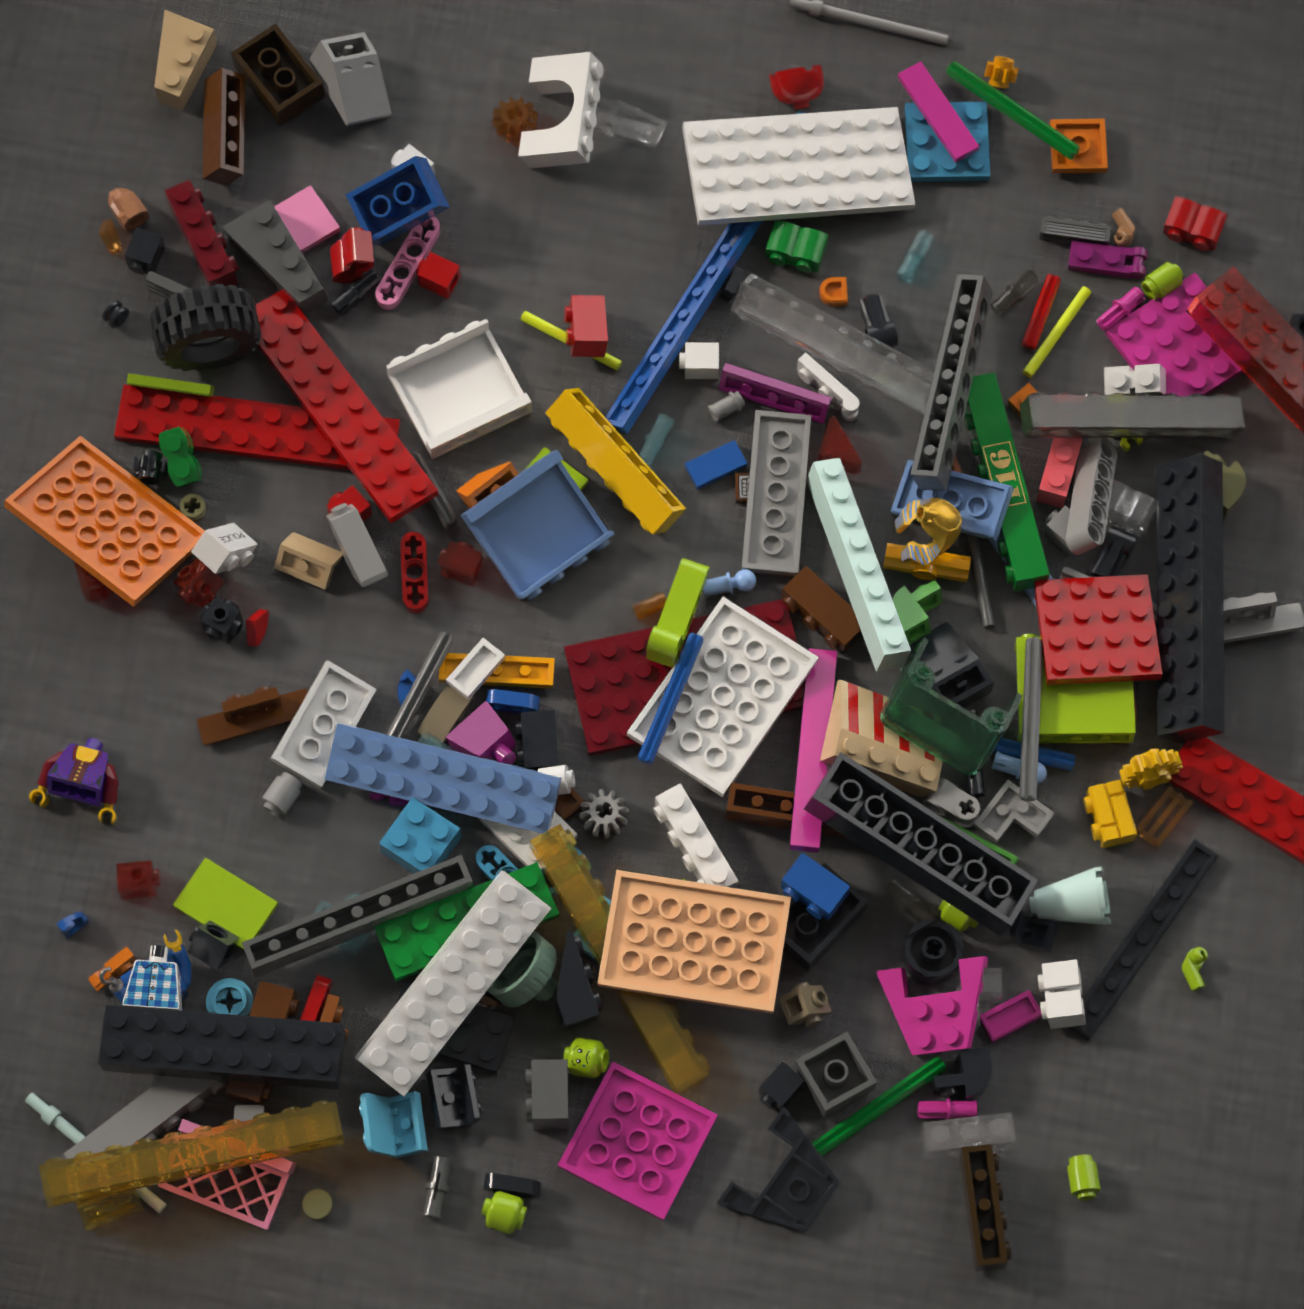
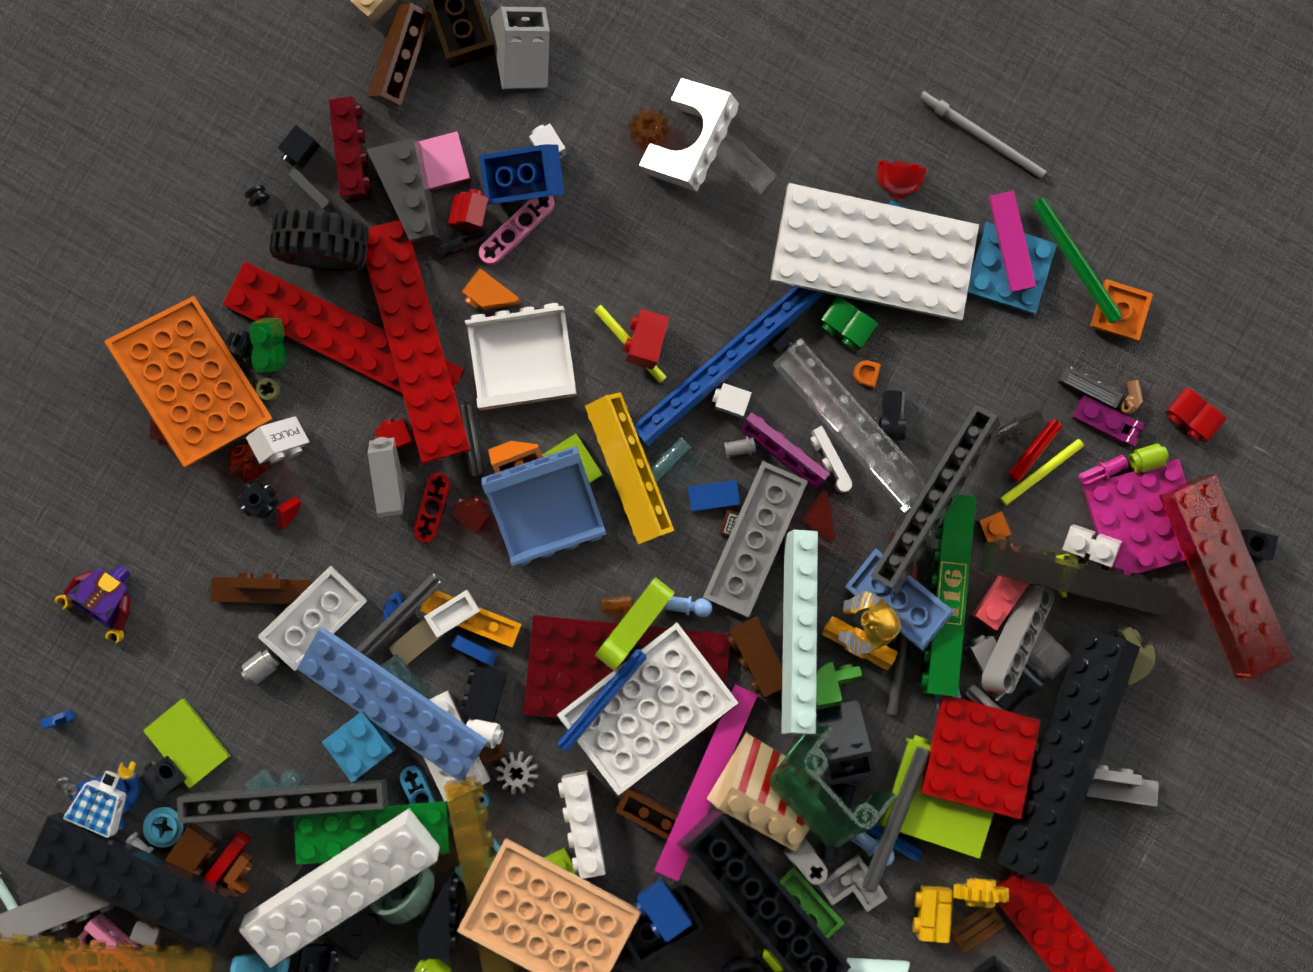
camera: 20 degrees right, 15 degrees up
(110, 237) = (275, 123): clear orange tile -> none
(120, 965) = (82, 769): orange plate -> none
(127, 208) = (297, 102): nougat rock -> none
(137, 879) = (120, 700): clear red brick -> none
(170, 385) = (282, 275): lime tile -> none
(307, 560) = (346, 467): tan panel -> none
(402, 334) = (488, 293): none -> orange slope
(438, 275) = (537, 249): red brick -> none
(484, 736) = (440, 677): magenta torso -> none
(915, 256) = (946, 364): clear light blue axle -> none
(1001, 72) = (1079, 221): light orange gear -> none

